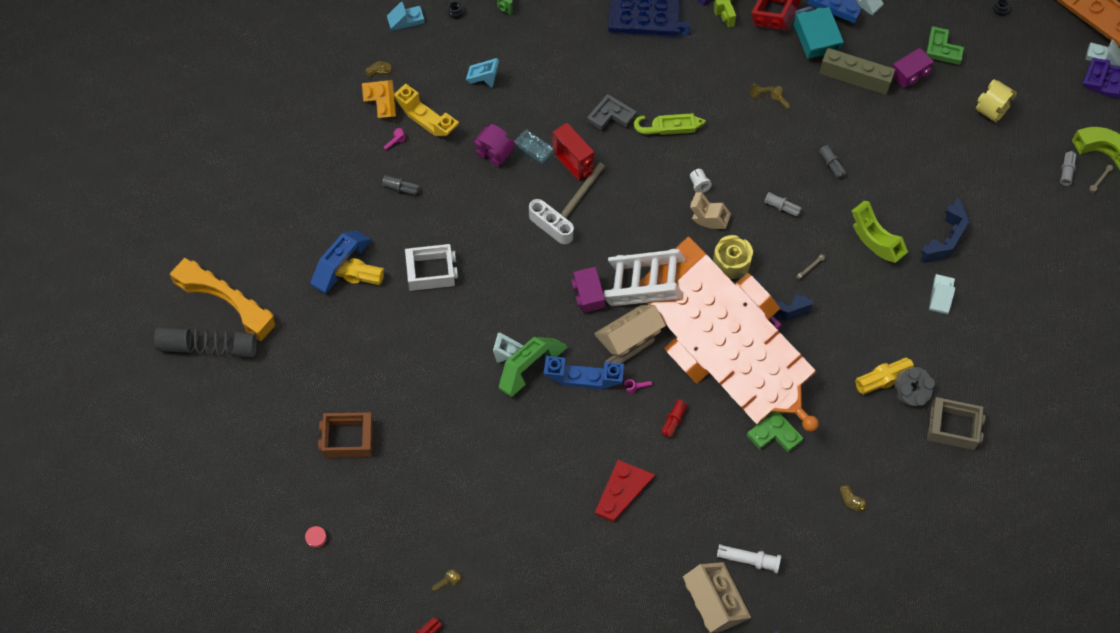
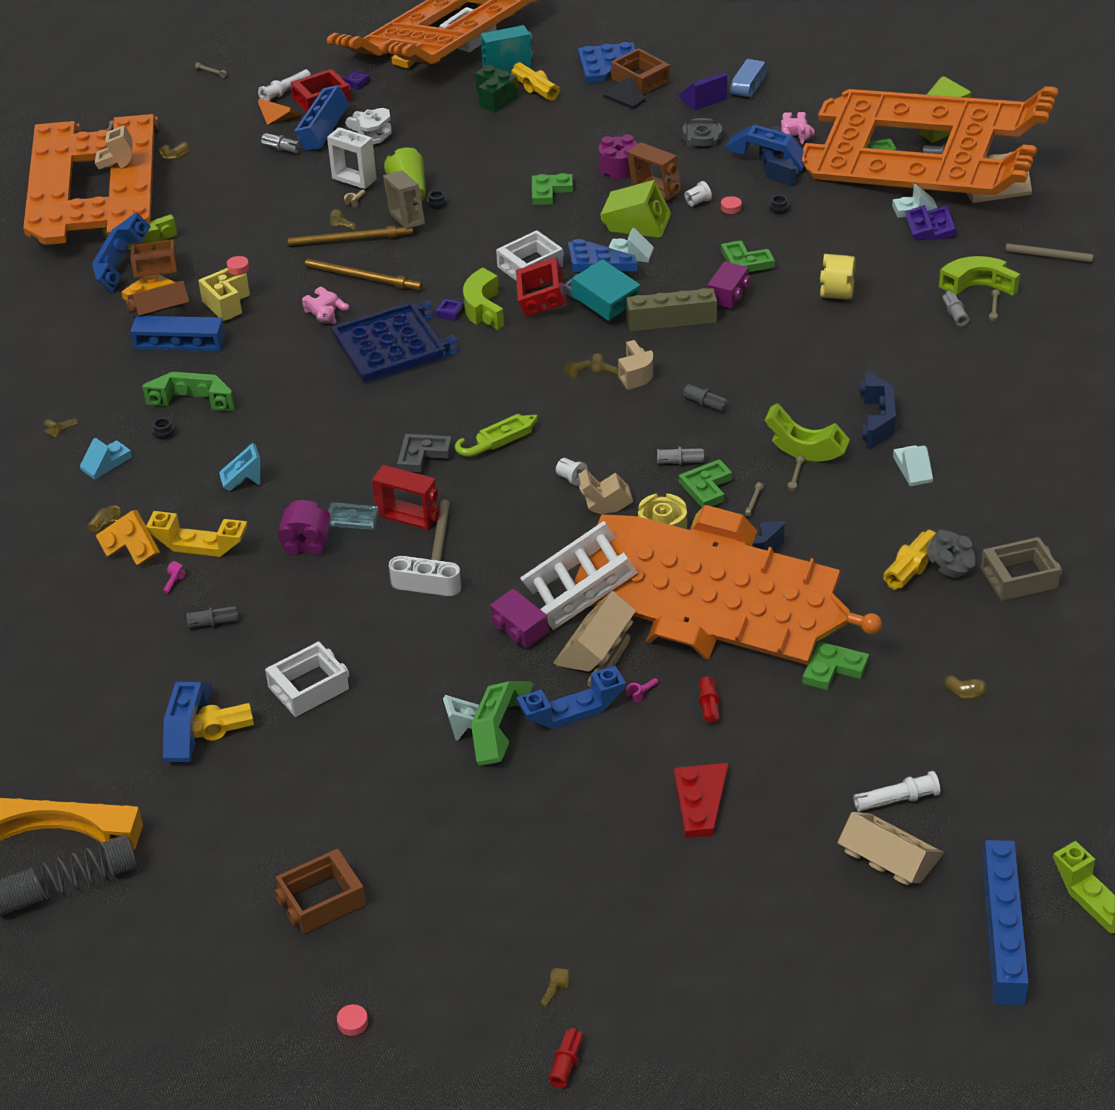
camera: 25 degrees left, 20 degrees down
(782, 234) = (703, 482): none -> bright green plate
(800, 113) = (636, 367): none -> tan brick
(845, 268) = (792, 486): none -> dark tan hinge

